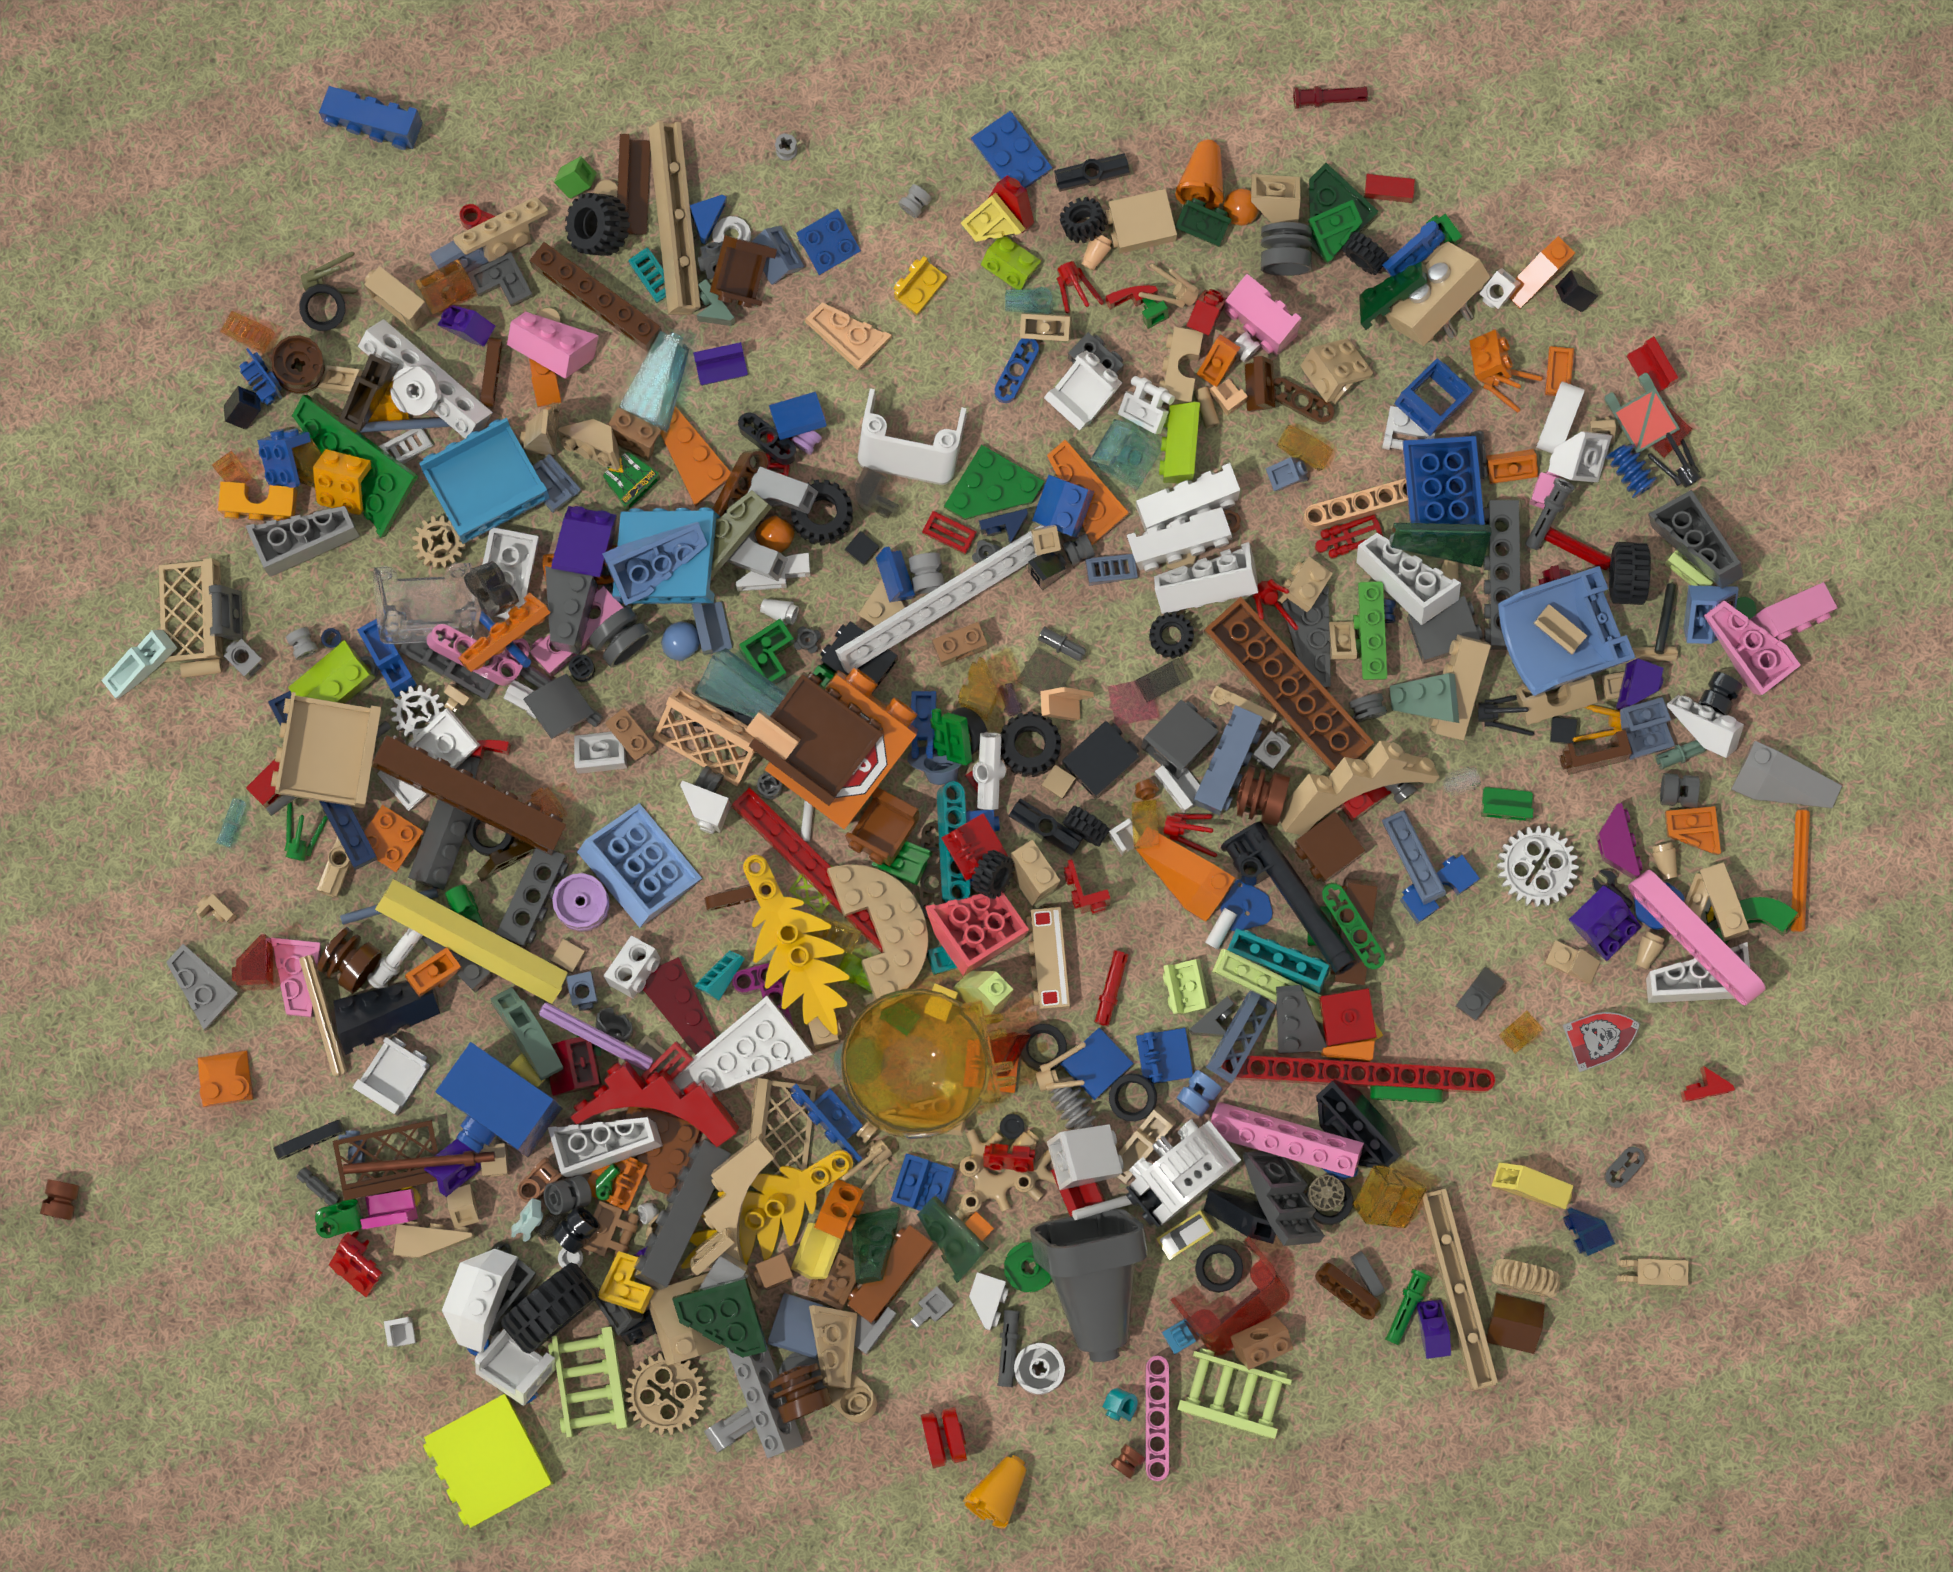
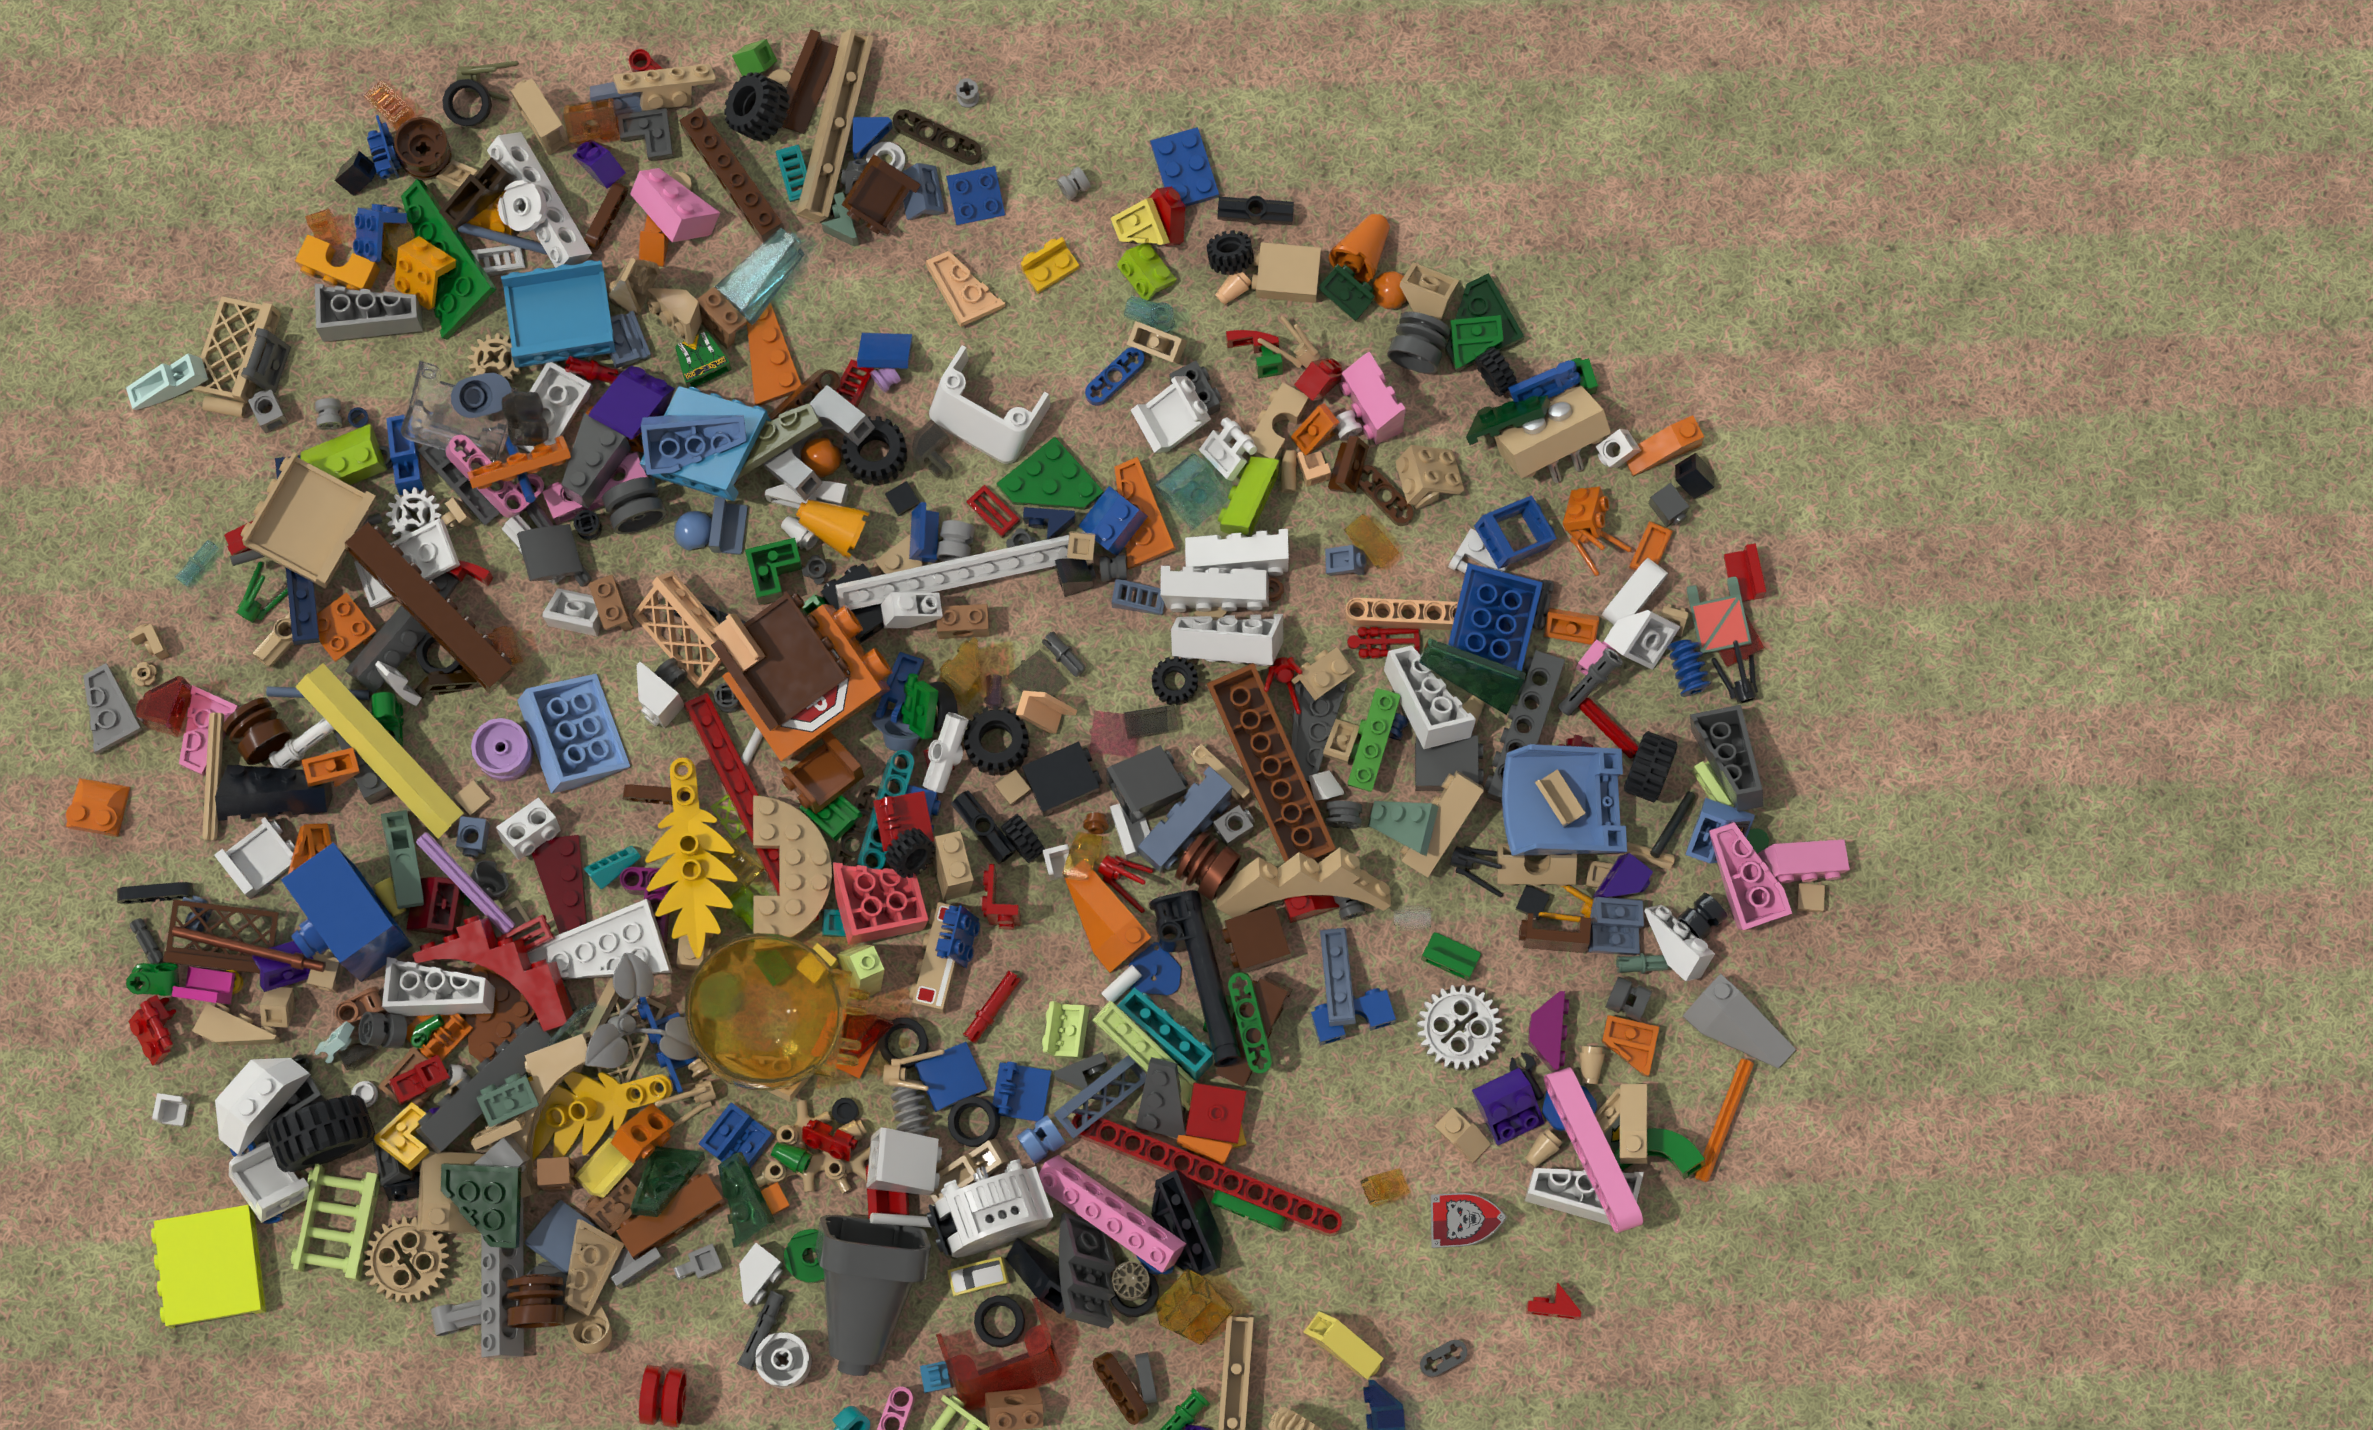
camera: 20 degrees right, 5 degrees down
(221, 948) = (144, 680): none -> tan plate
(439, 1052) = (310, 841): none -> orange wing
(441, 580) = (479, 395): none -> sand blue piece
(463, 872) = (398, 682): none -> white slope
(519, 904) = (443, 732): dark grey brick -> none
(533, 522) = (591, 370): none -> red pin
(579, 1225) = (376, 1067): black wheel -> none
(617, 1228) = (419, 1079): none -> red slope
(709, 1220) = (507, 1100): none -> sand green bracket
(720, 364) = (829, 278): dark purple panel -> none
(738, 686) = (728, 586): clear light blue slope -> none
(740, 1131) = (572, 1024): none -> clear light blue piece
(769, 448) = (847, 373): black beam -> none
(772, 194) = (935, 140): none -> dark brown beam
(784, 1143) = (607, 1047): none -> light grey plant
(811, 594) = (833, 524): none -> light orange cone
(911, 650) = (910, 609): none -> white slope
(981, 1184) = (792, 1157): none -> green cone
(1064, 924) = (964, 930): none -> blue hinge
(1071, 275) = (1199, 303): red plant -> none
(1318, 96) = (1504, 208): dark red pin -> none
(1341, 687) = (1324, 786): none -> white slope
(1389, 188) = (1543, 318): red slope -> none
(1480, 993) = (1358, 1135): dark grey slope -> none
(1563, 326) = (1669, 505): none -> dark grey brick
(1809, 644) = (1810, 897): none -> tan tile

